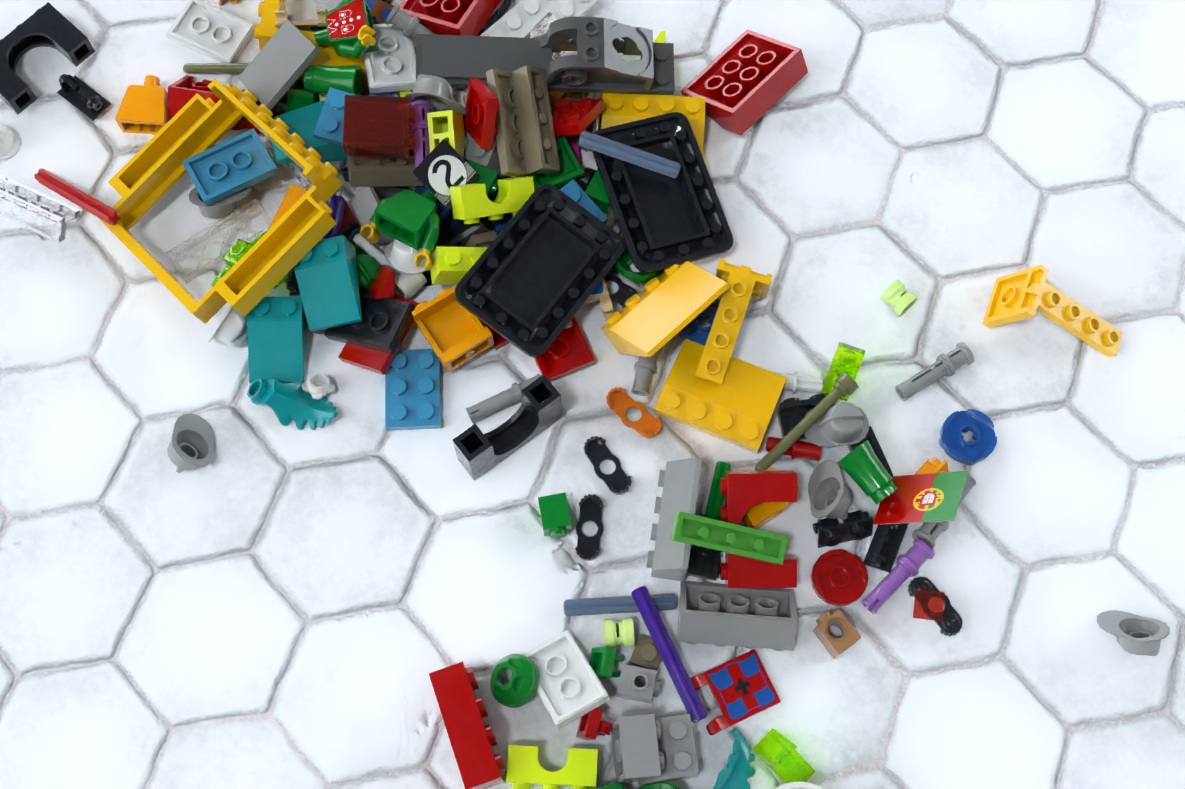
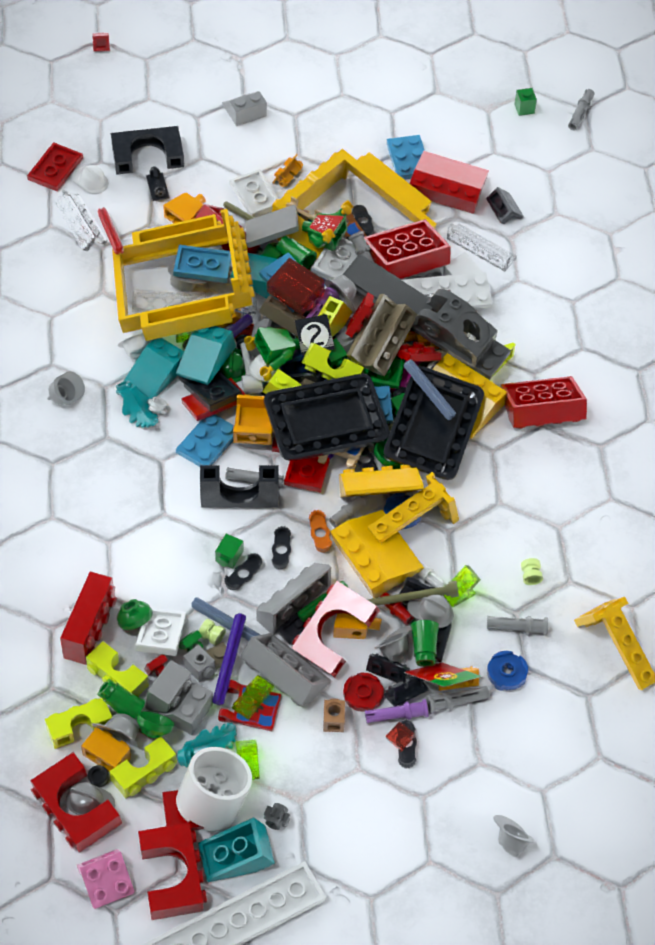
camera: 35 degrees right, 15 degrees down
(383, 284) = (235, 375): red slope -> none
(729, 538) = (310, 614): bright green plate -> none
(731, 680) = (253, 697): none -> clear neon green slope

